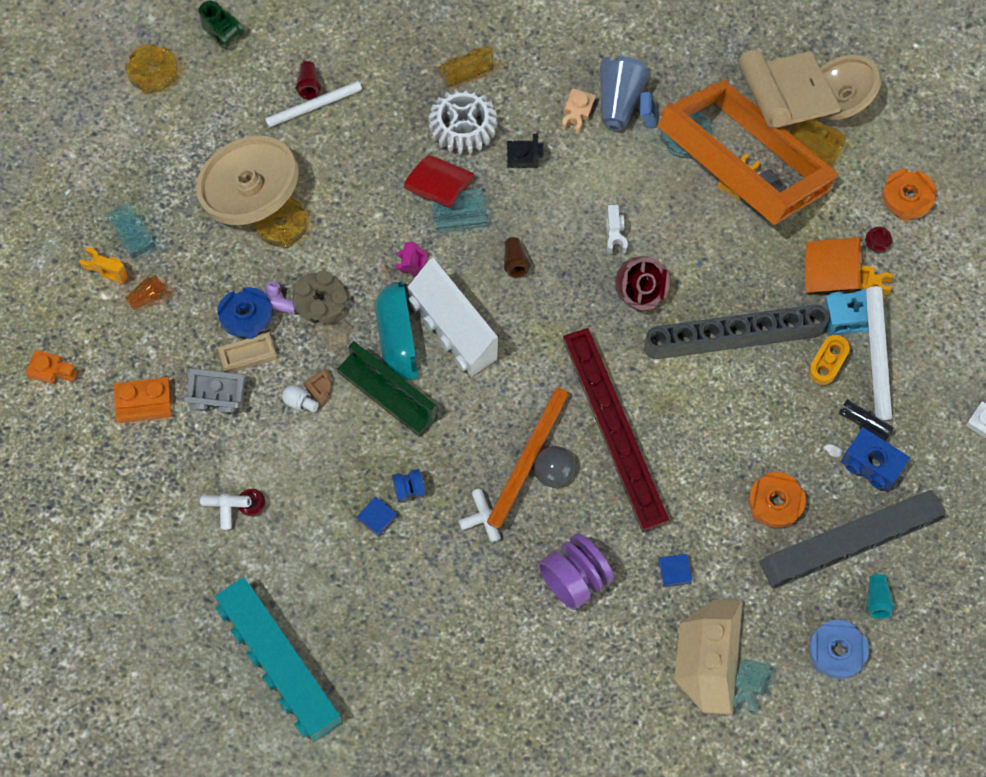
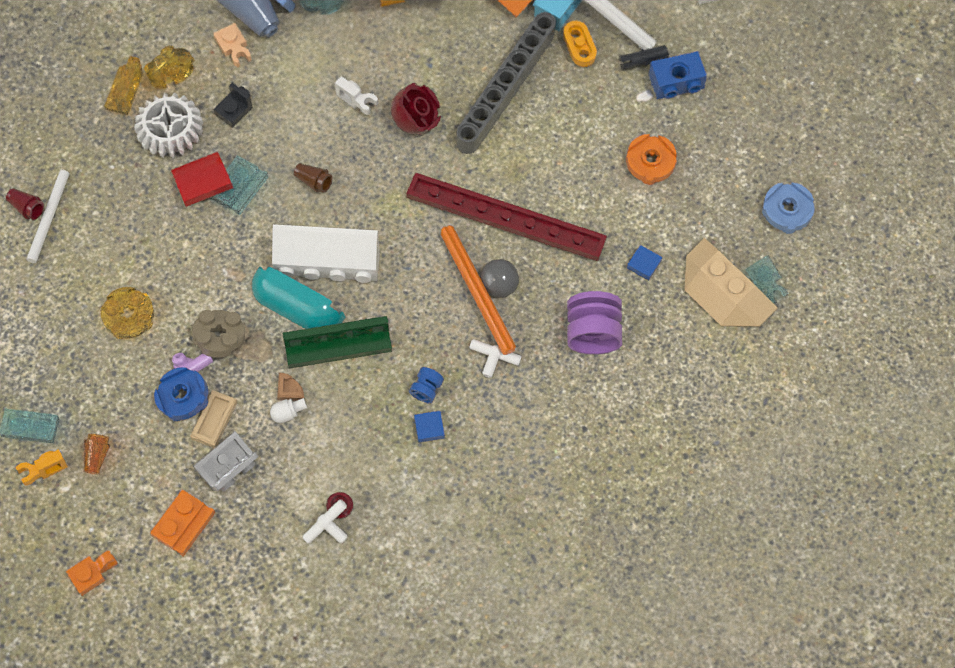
camera: 50 degrees left, 0 degrees up
(247, 180) = (72, 308): tan dish -> none
(278, 659) = (481, 576): teal brick -> none
(412, 258) = (250, 245): dark pink tile -> none
(509, 80) = (169, 66): none -> clear yellow plate
(852, 539) = (720, 136): dark grey beam -> none
(879, 597) = (776, 153): teal cone -> none

